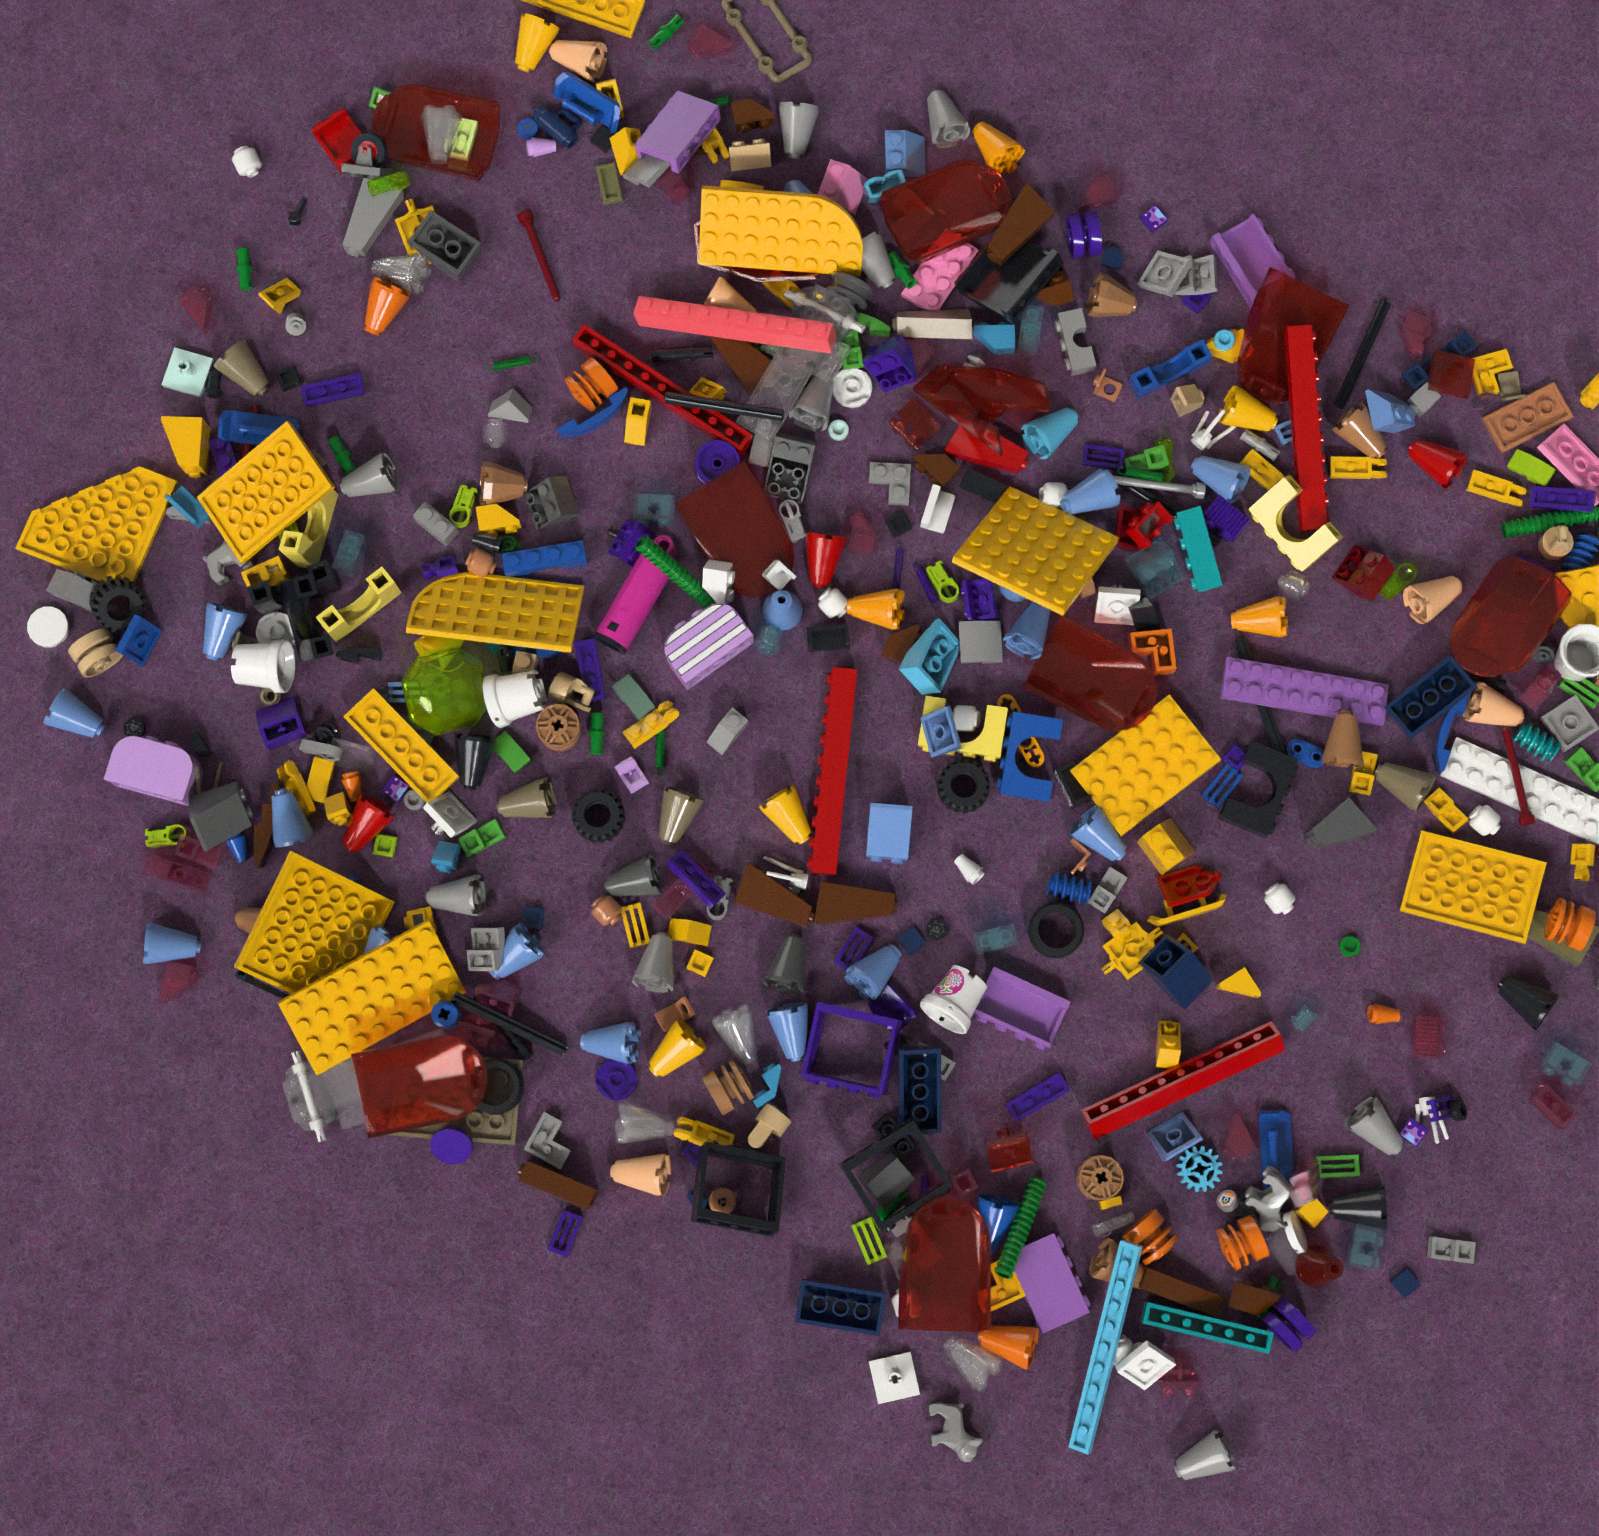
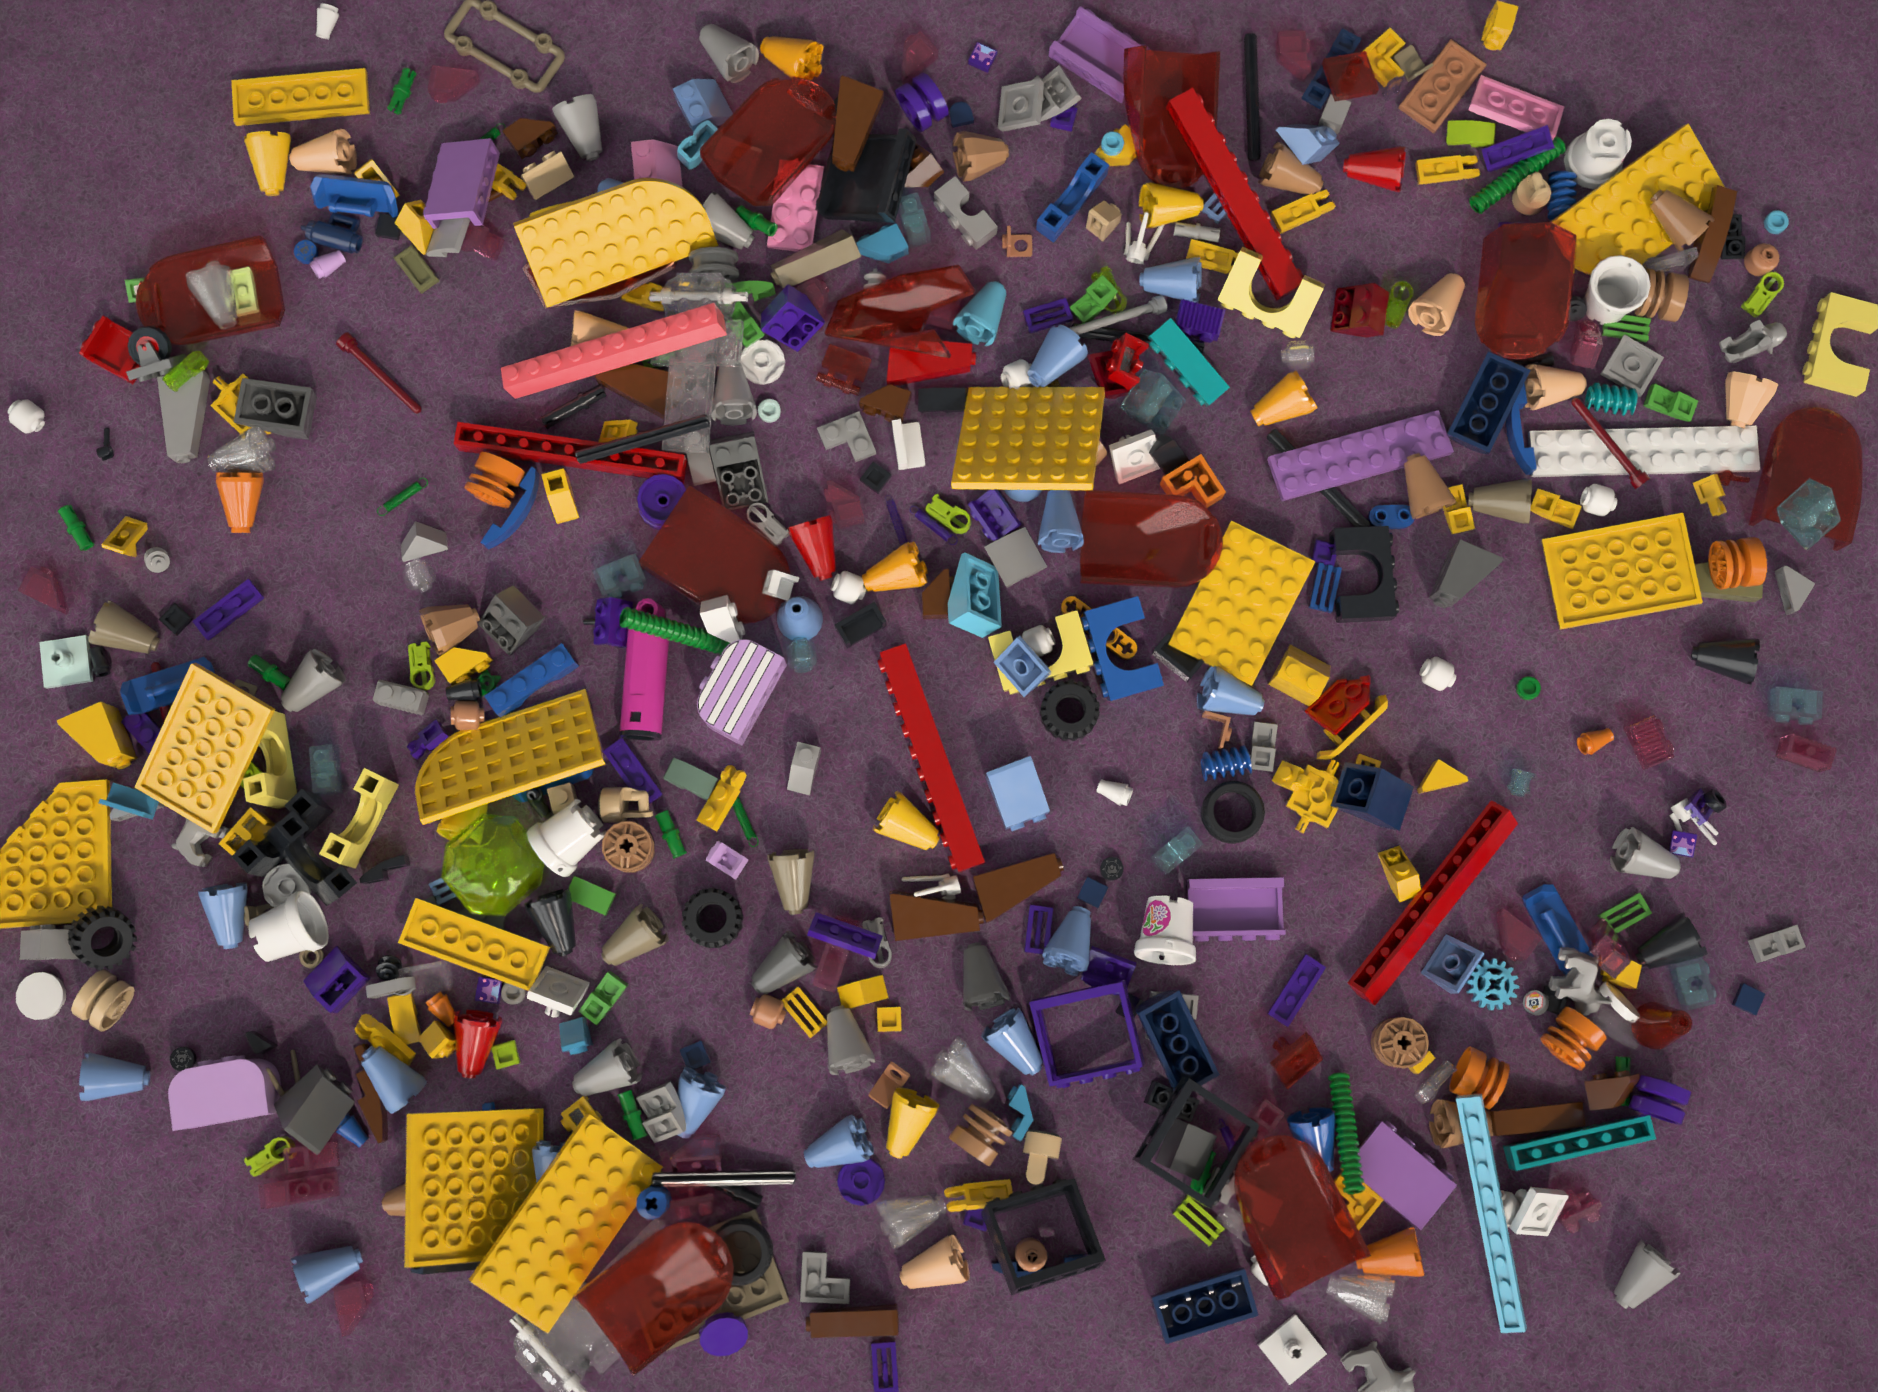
camera: 30 degrees left, 0 degrees up
(138, 640) = (143, 965): blue plate -> none
(461, 940) = (632, 1114): none -> green pin
(1144, 474) = (1097, 313): green piece -> none

